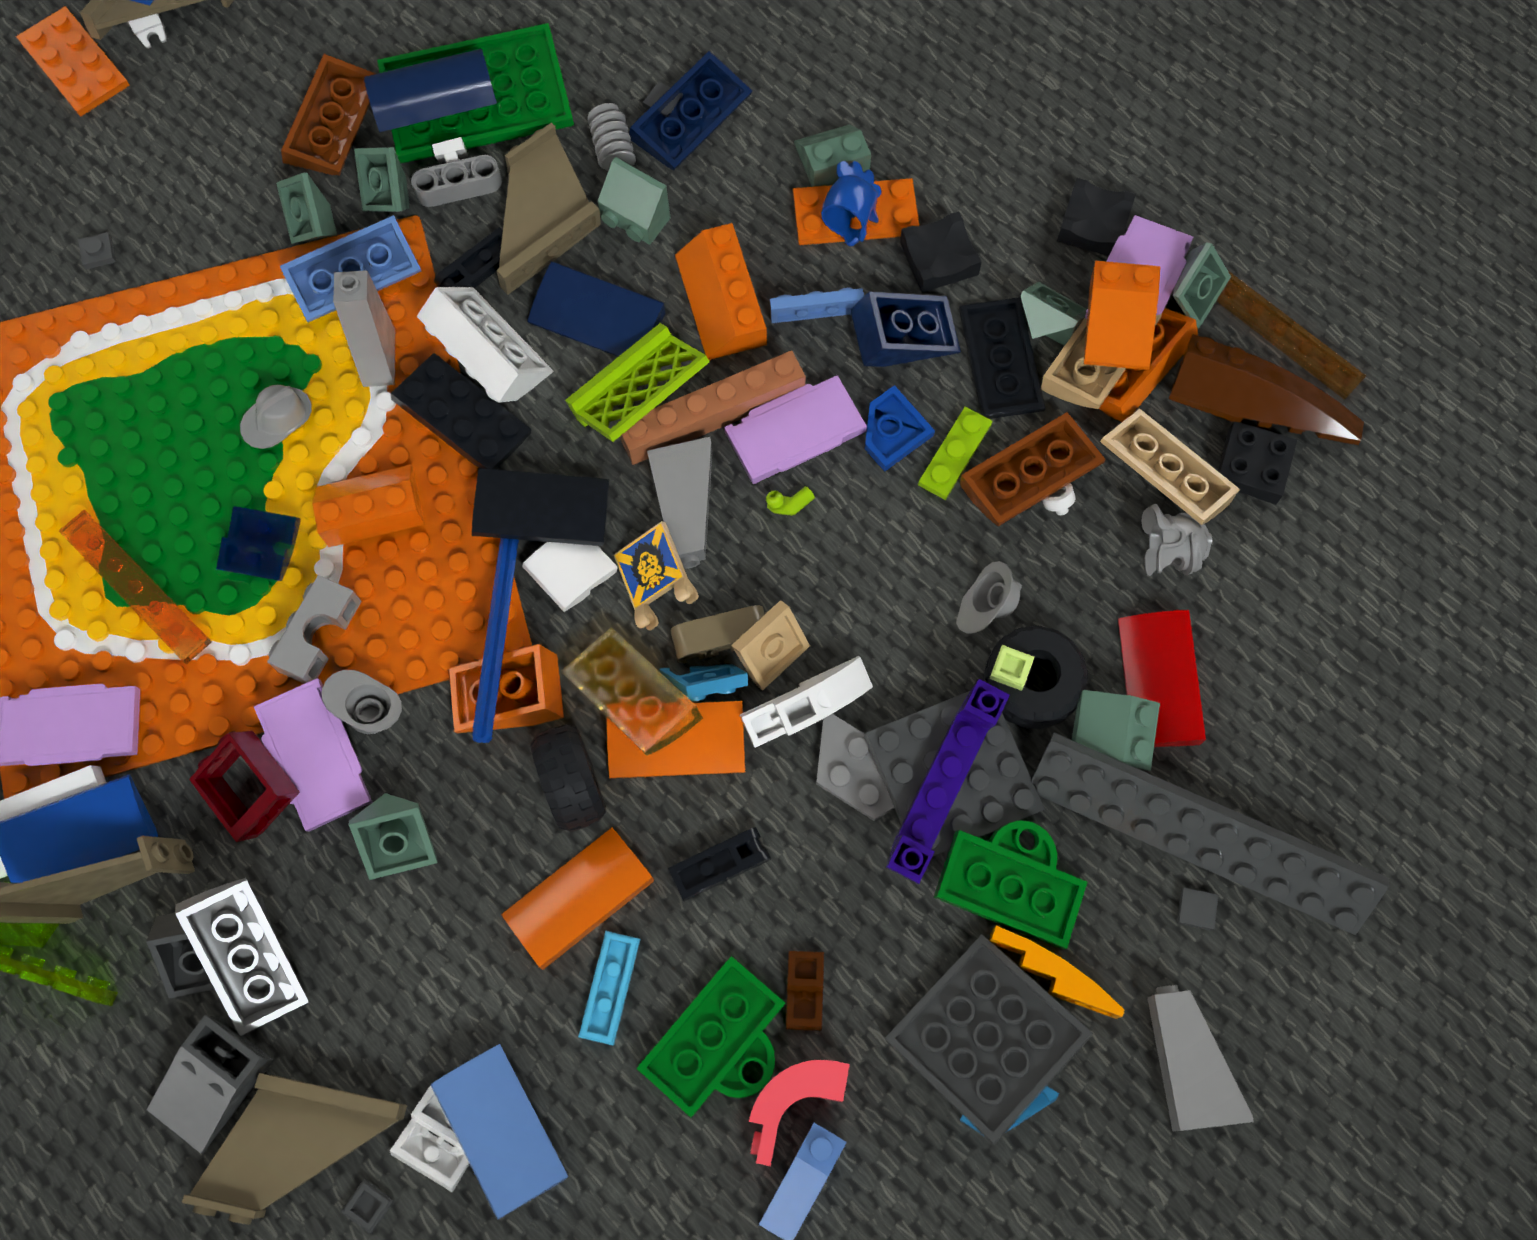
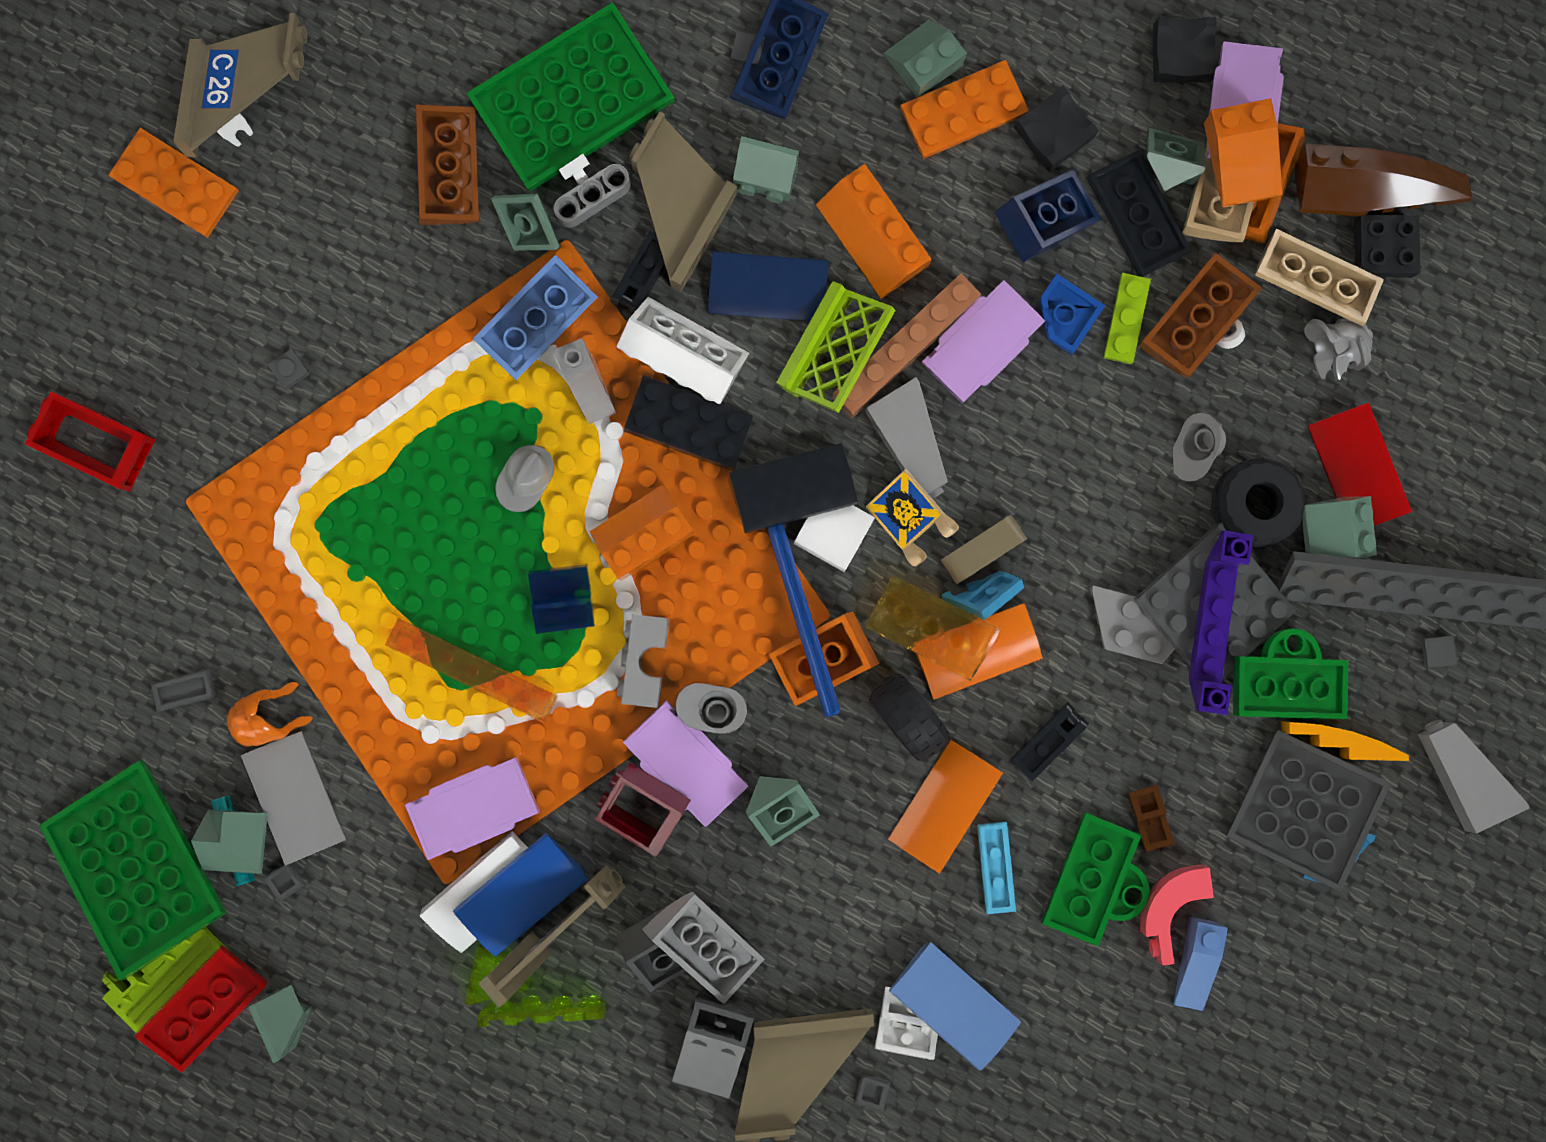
camera: 20 degrees left, 15 degrees up
(305, 209) = (469, 274): sand green slope -> none
(430, 90) = (537, 114): dark blue brick -> none
(610, 135) = (716, 108): light grey piece -> none
(771, 645) = (1033, 548): tan plate -> none
(789, 505) = (999, 413): lime arm -> none
(807, 703) = (1081, 588): white slope -> none
(814, 305) = (962, 216): medium blue plate -> none
(848, 198) = (965, 105): blue piece -> none
(1011, 667) = (1243, 506): yellowish green tile -> none
(1201, 282) = (1298, 90): sand green slope -> none
(1290, 337) = (1374, 109): clear orange tile -> none

